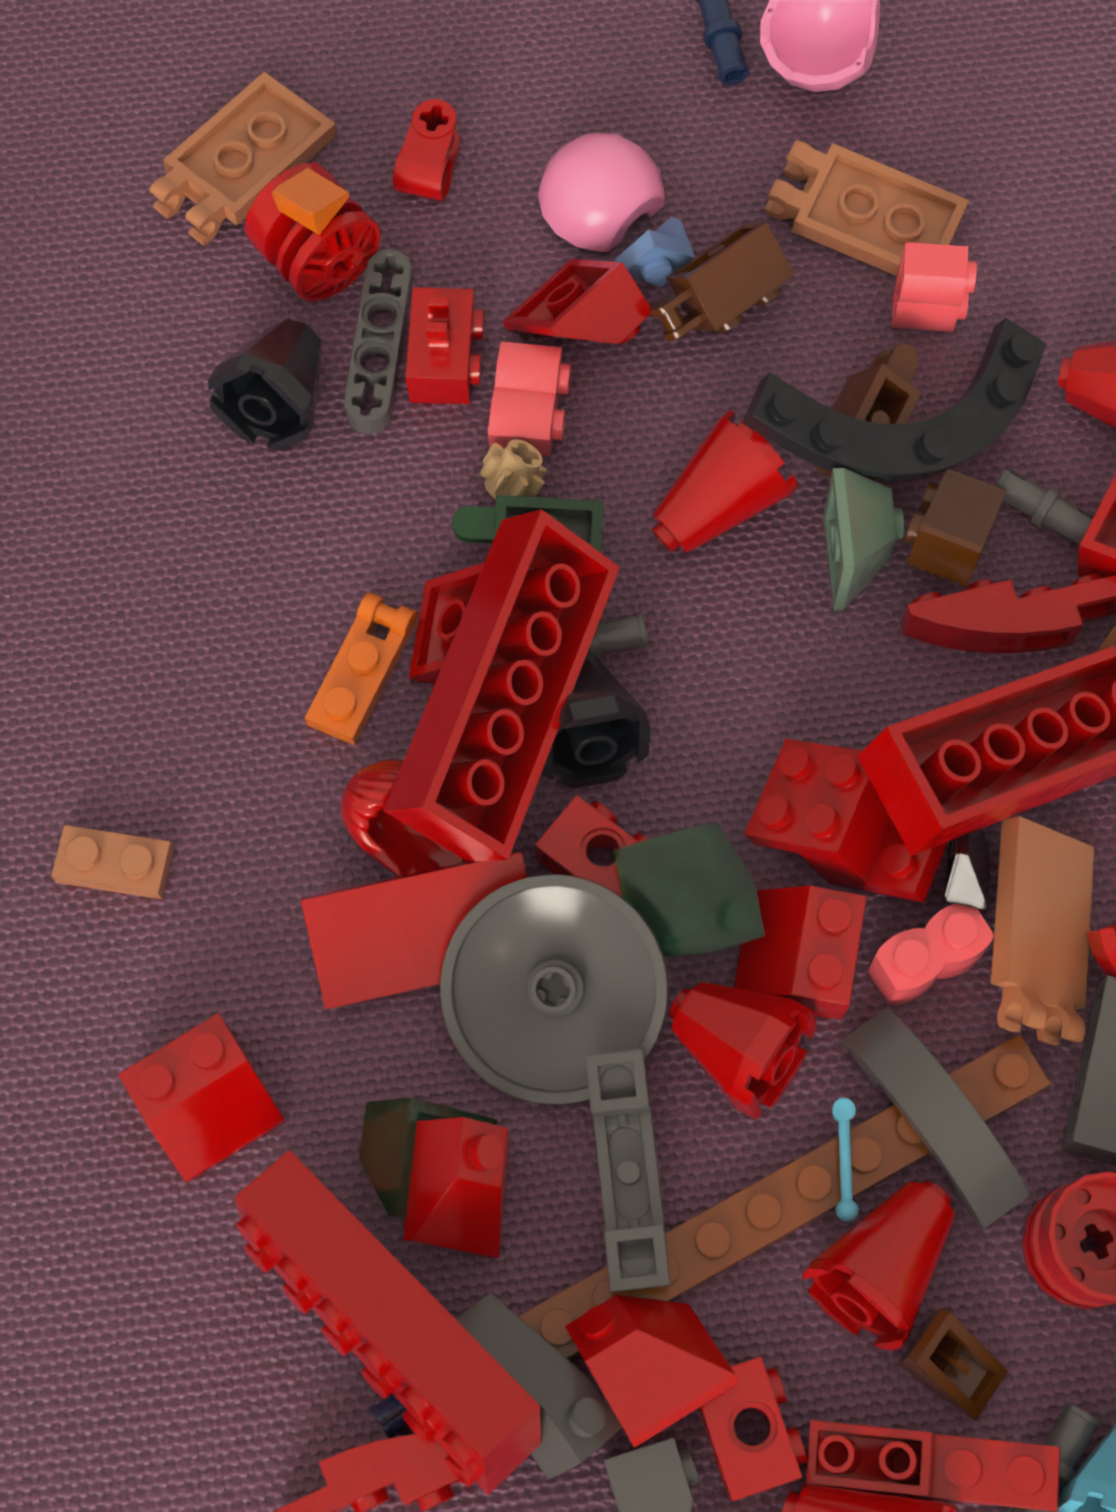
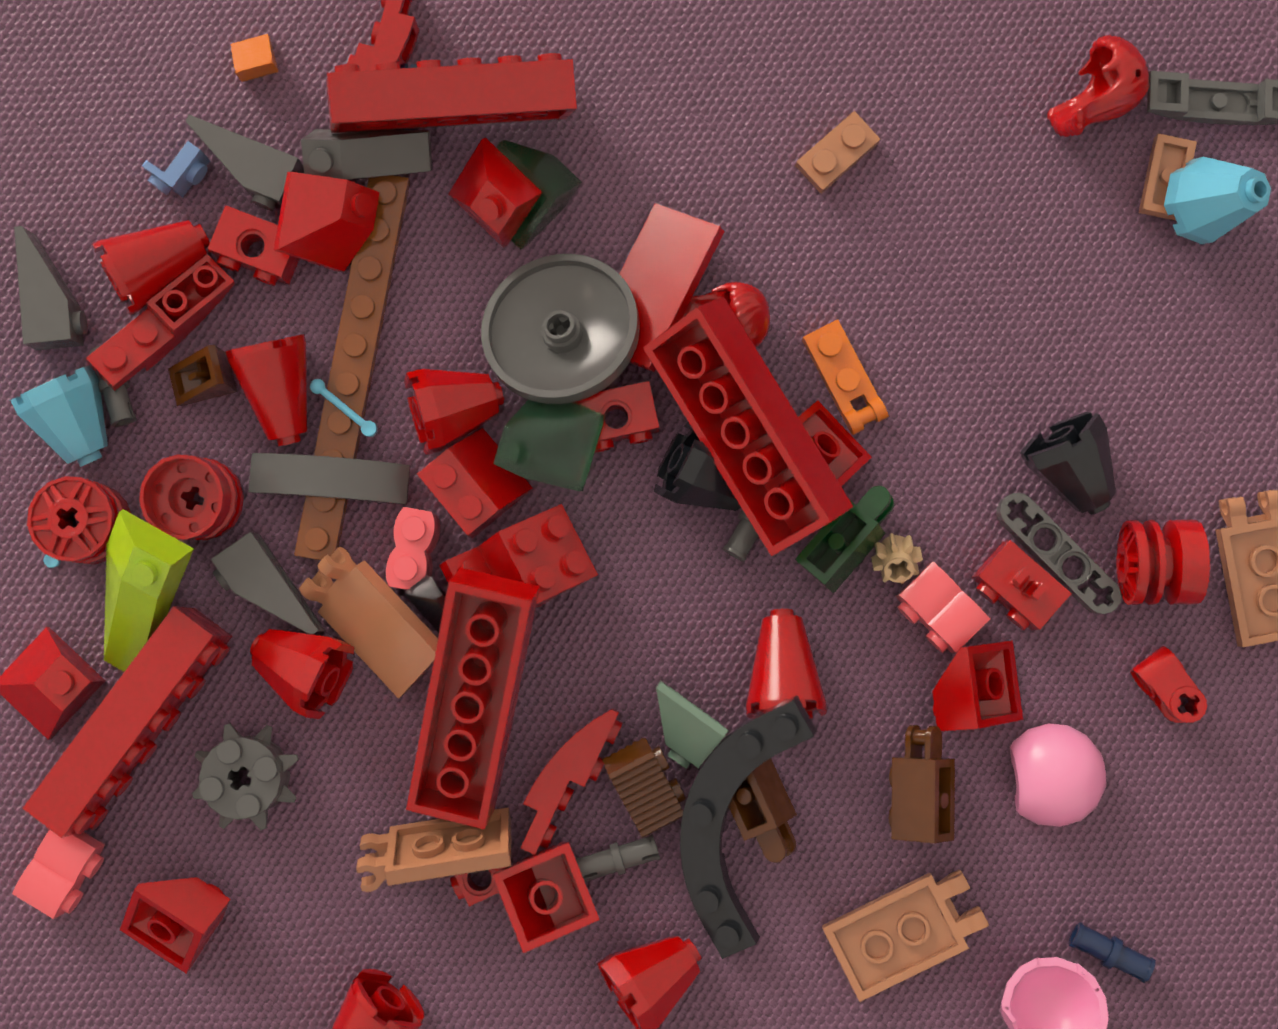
camera: 130 degrees right, 15 degrees up
(201, 1098) = (657, 100): red slope -> none
(310, 199) = (1172, 562): orange slope -> none
(628, 1171) = (429, 288): dark grey slope -> none
(658, 253) = (973, 773): medium blue bracket -> none
(932, 287) = (810, 914): coral brick -> none

